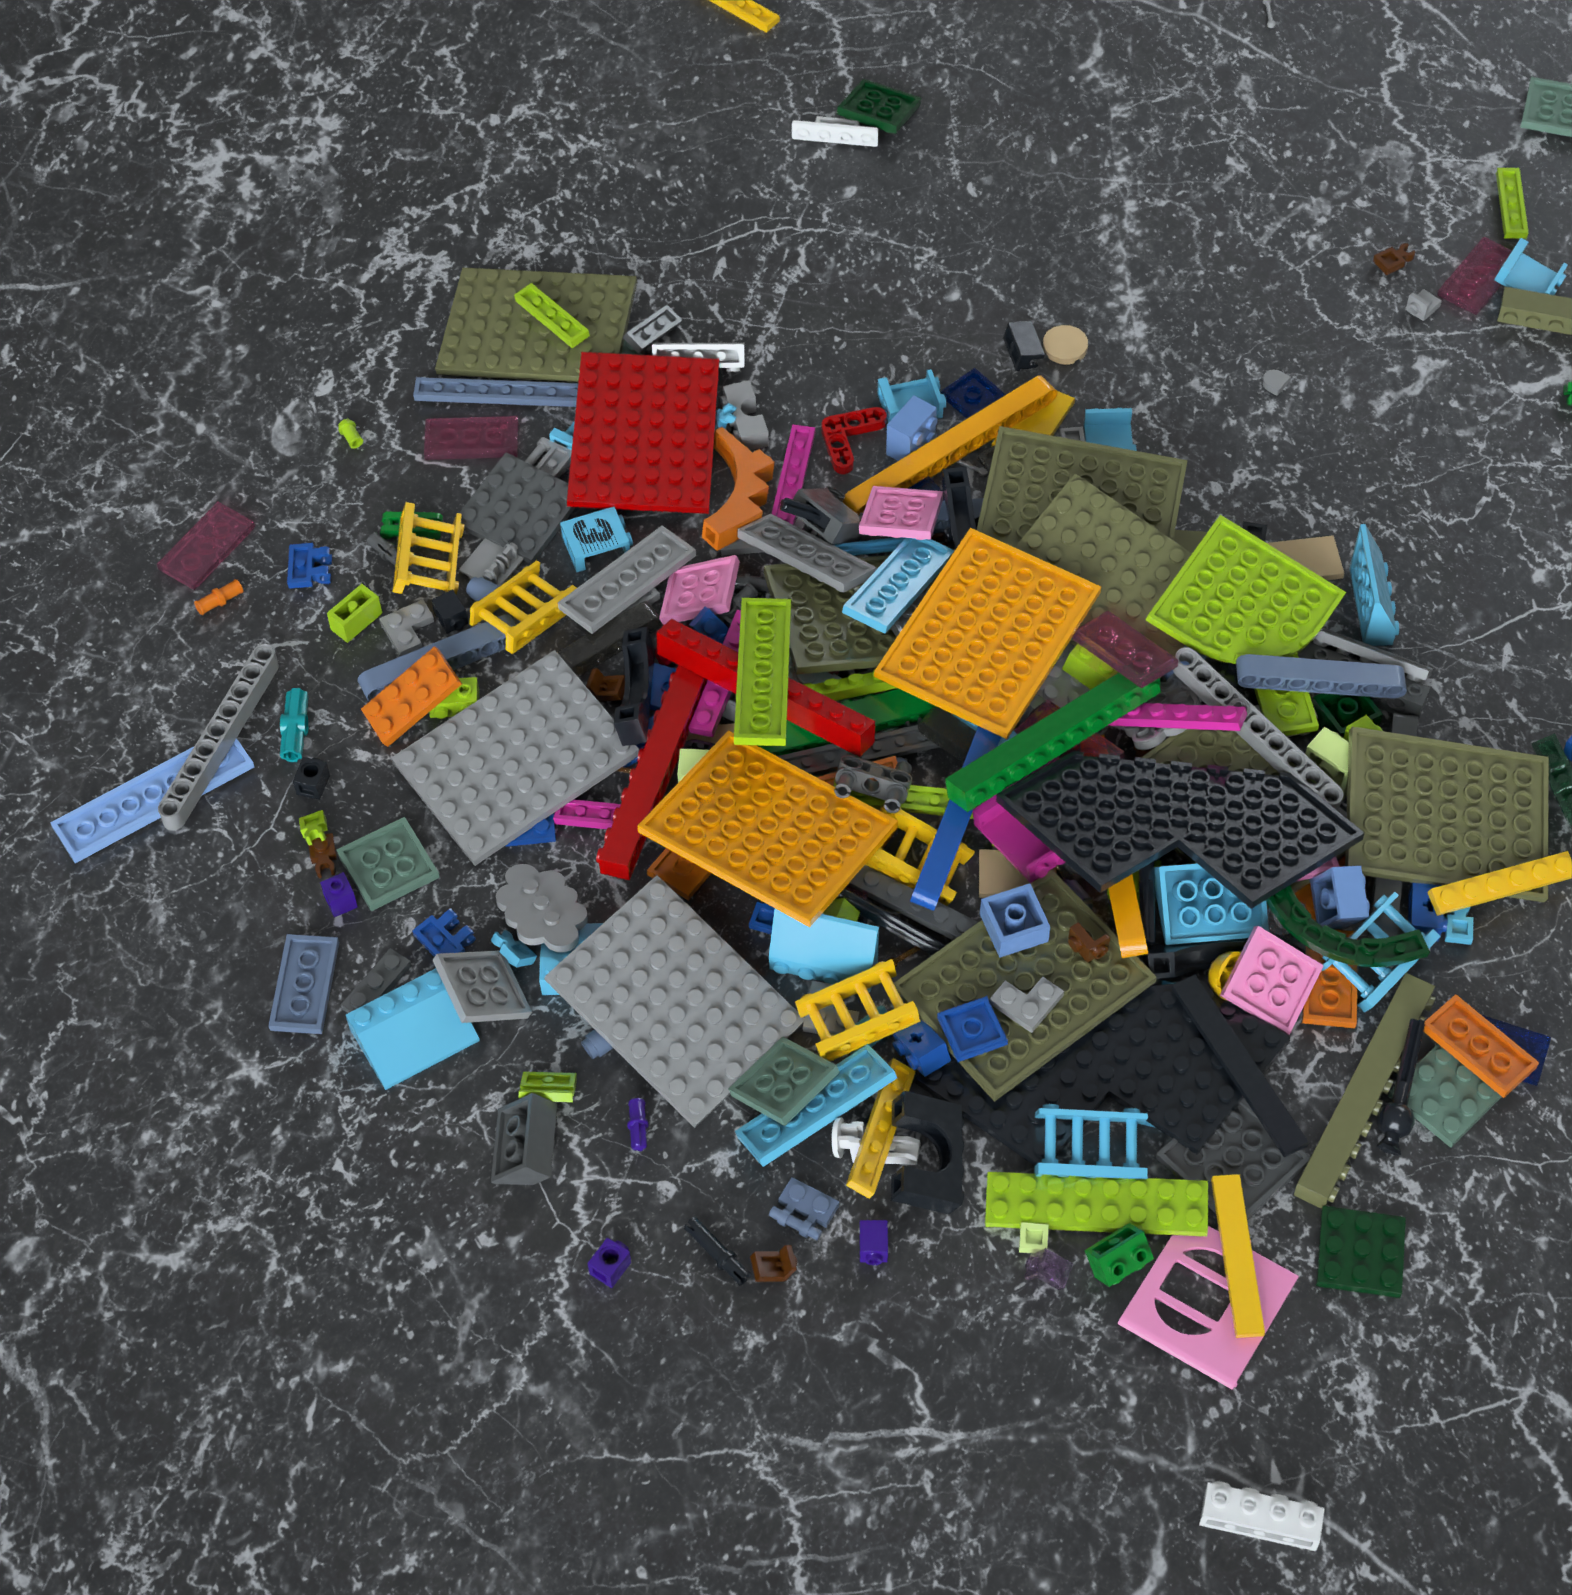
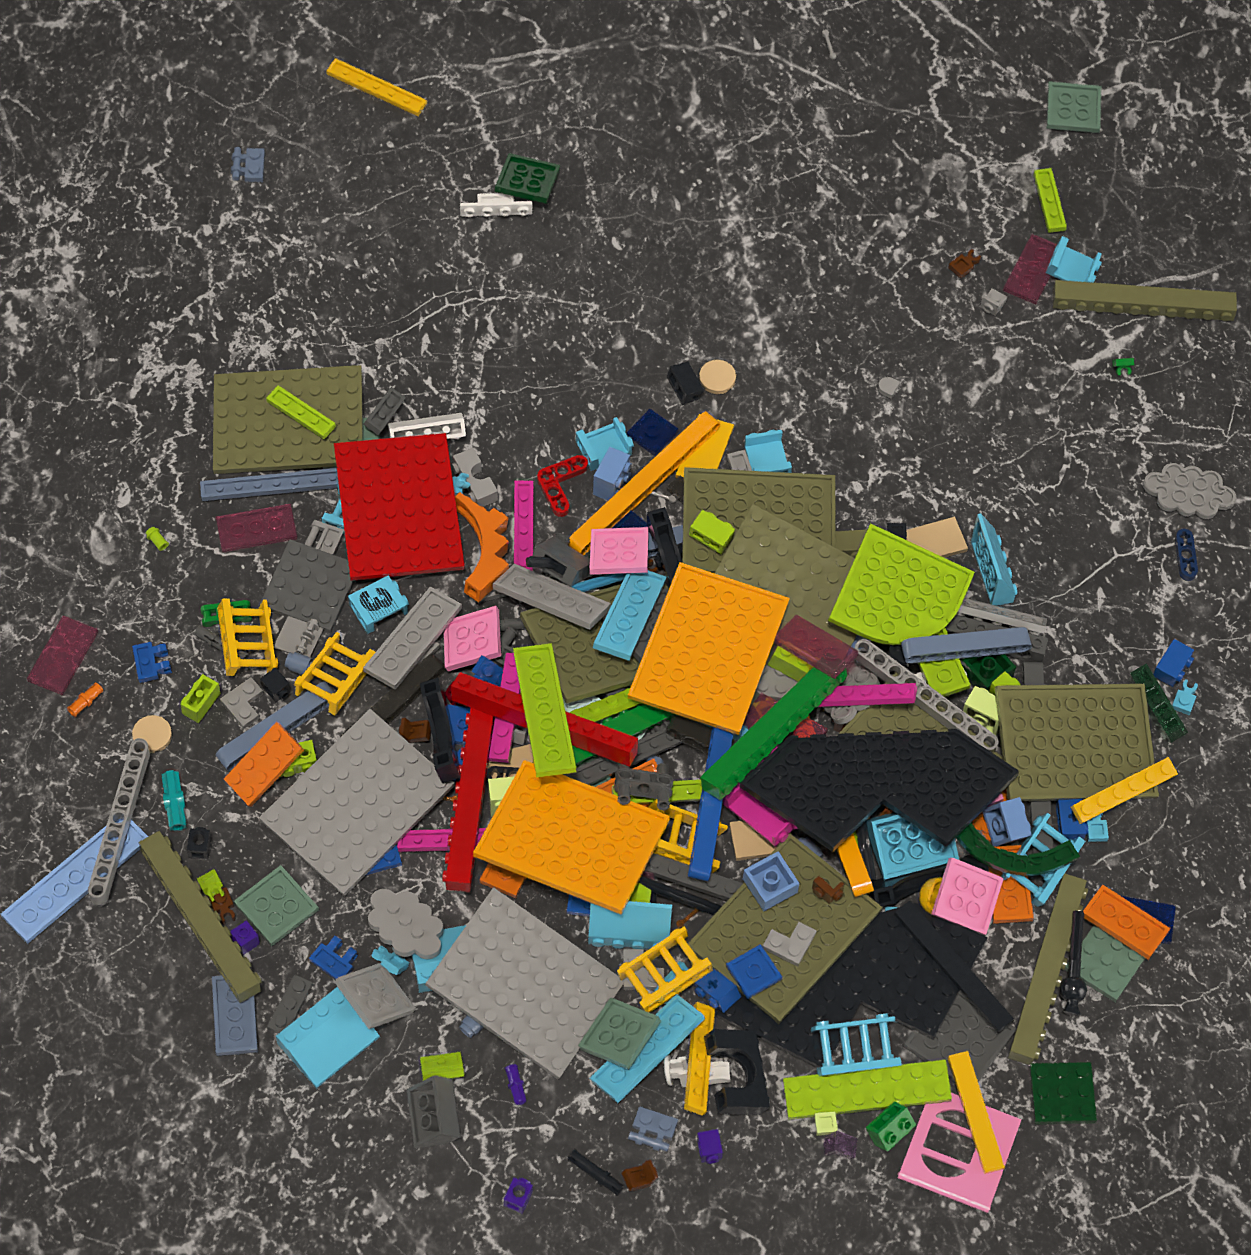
camera: 15 degrees left, 5 degrees up
(289, 862) = (200, 917): none -> olive brick
(291, 645) = (154, 731): none -> tan tile
(564, 58) = (254, 164): none -> sand blue plate
(1018, 499) = (712, 531): none -> lime brick

